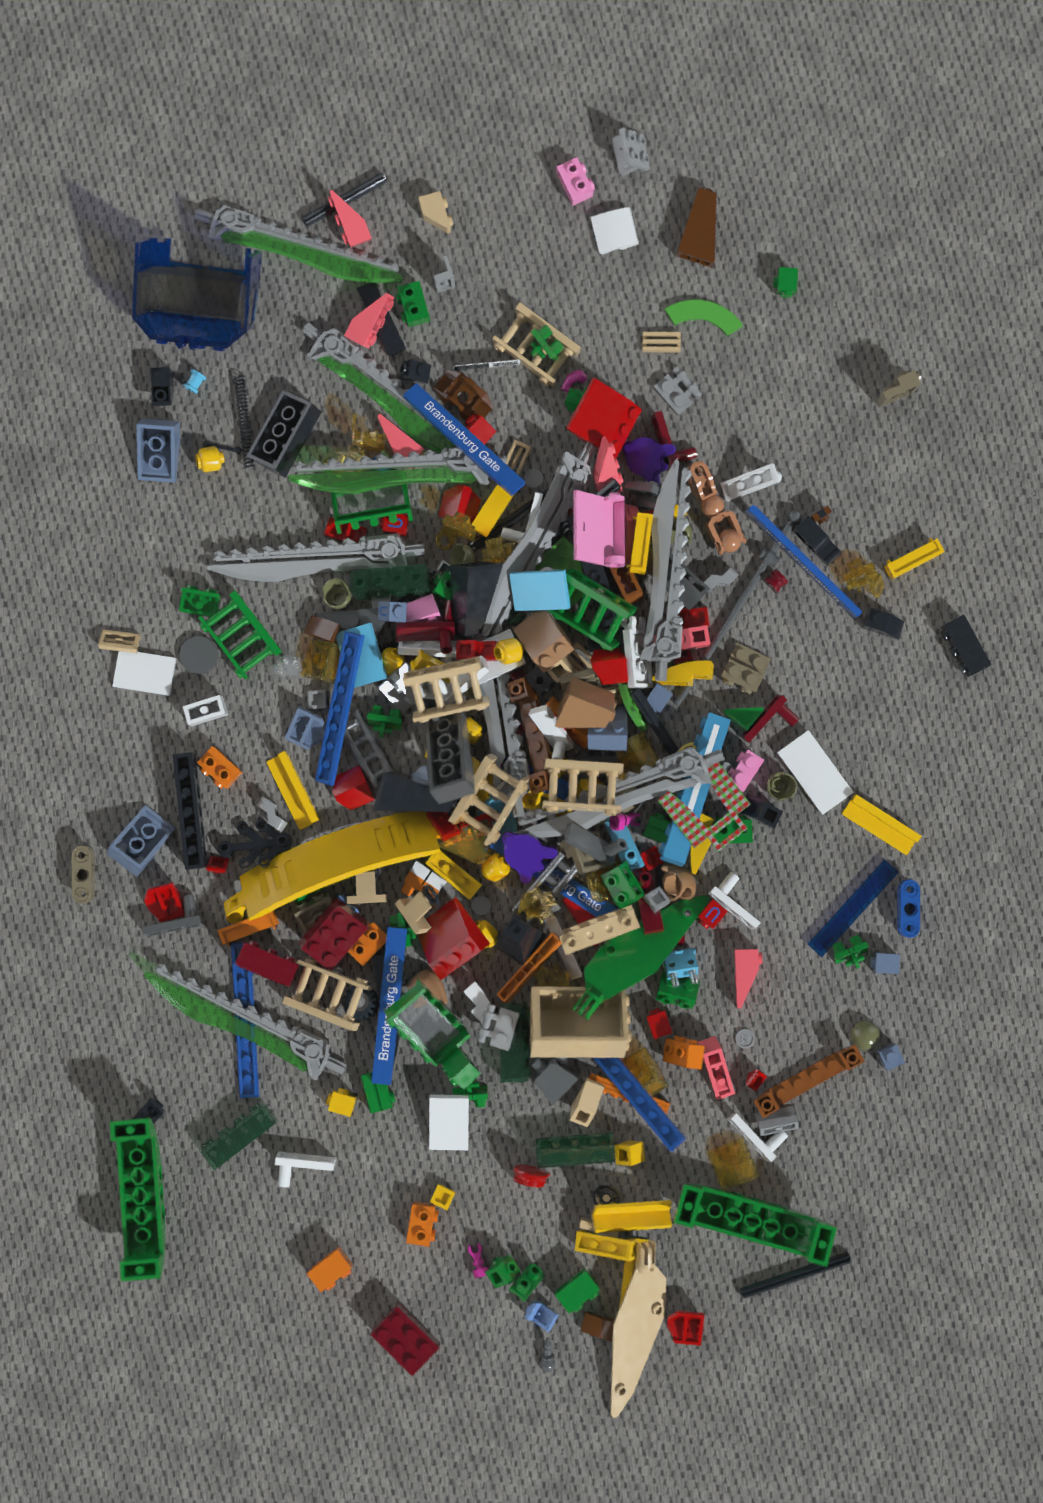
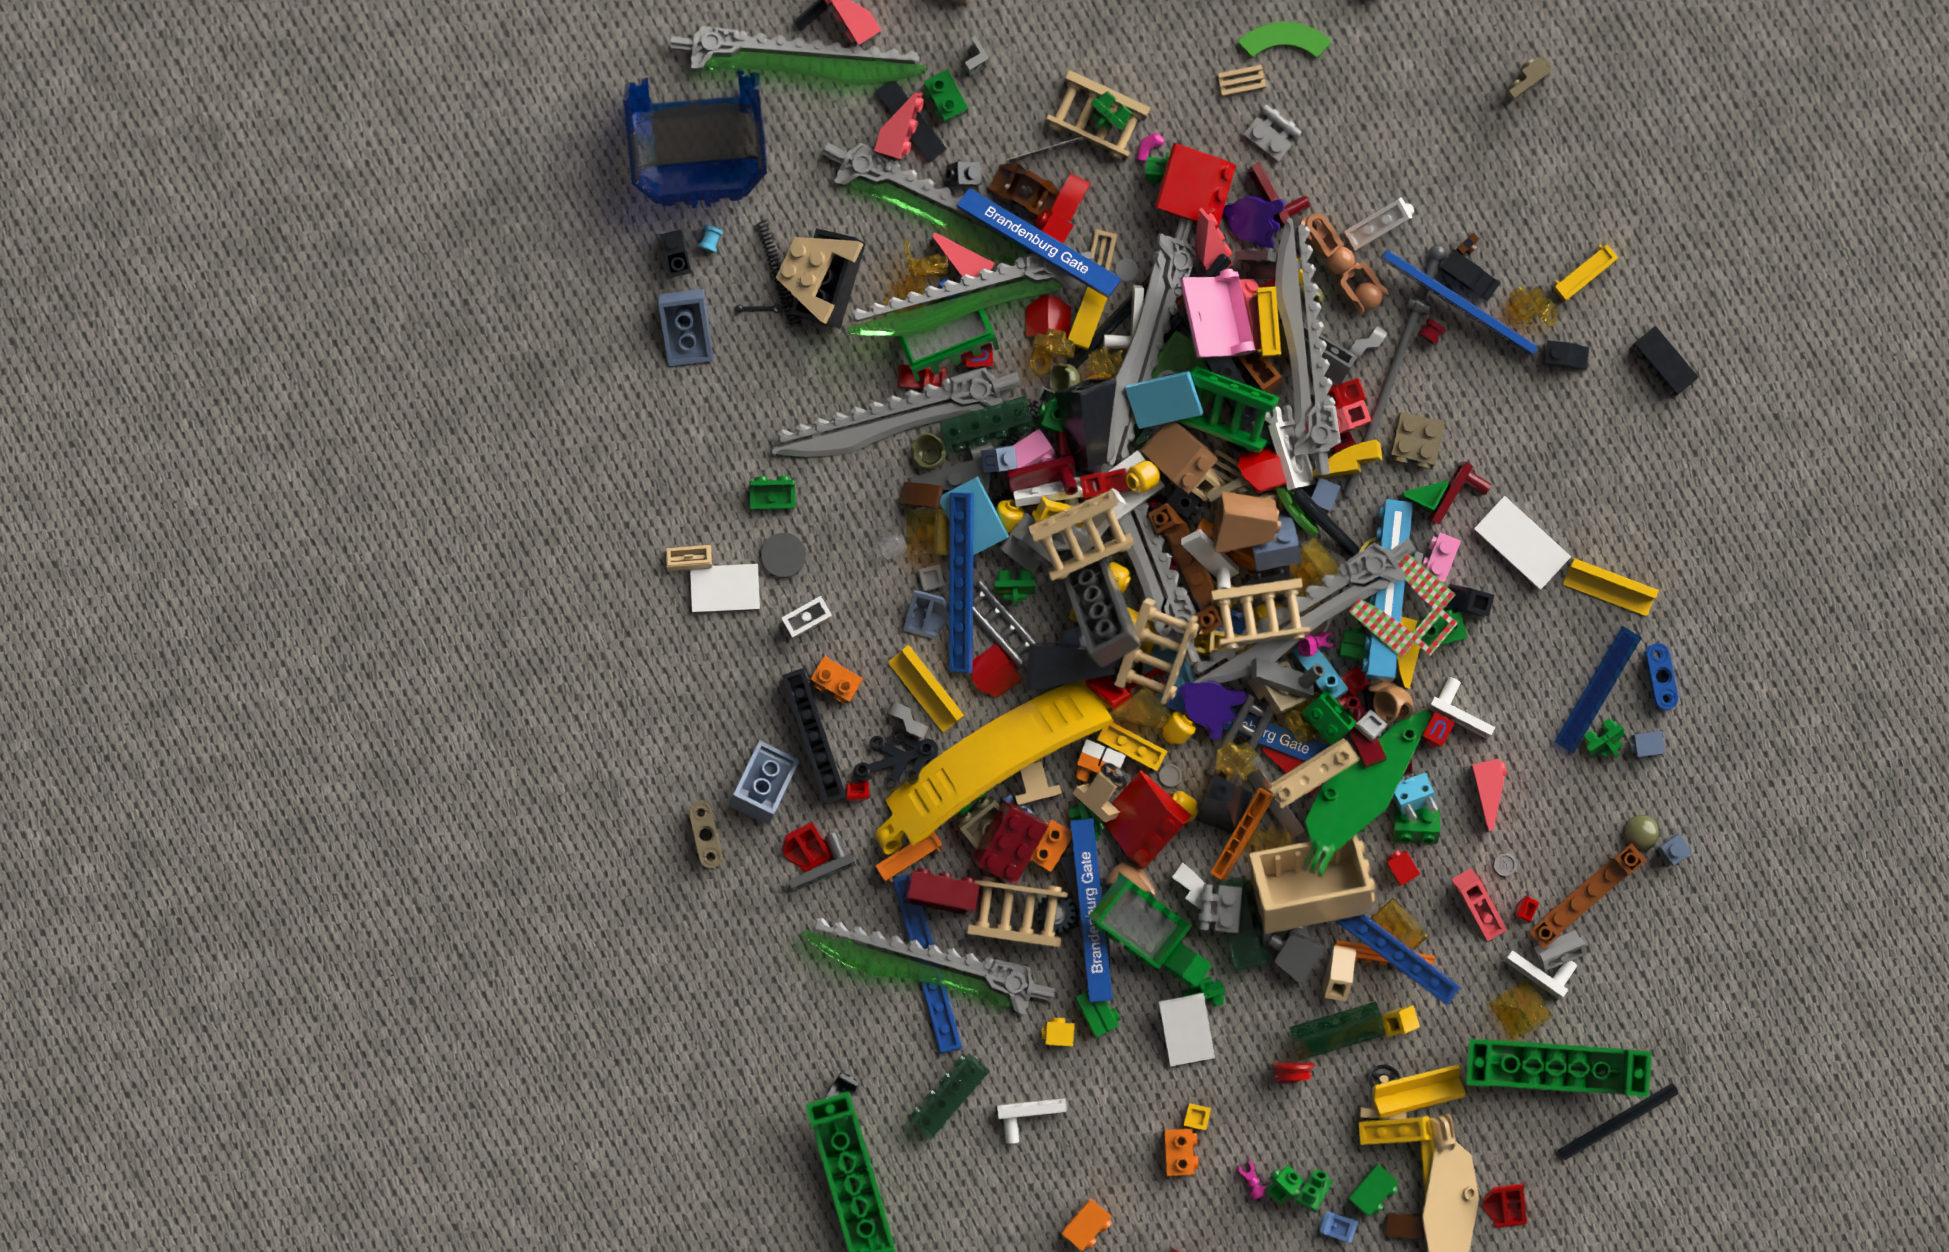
camera: 15 degrees left, 0 degrees up
(209, 459) = (747, 325): yellow head -> none
(247, 618) = (831, 501): green fence -> none
(268, 418) = (806, 268): none -> tan wing
(499, 408) = (1070, 197): none -> red slope
(683, 1053) = (1437, 894): orange brick -> none
(776, 780) = (1479, 562): olive hair -> none

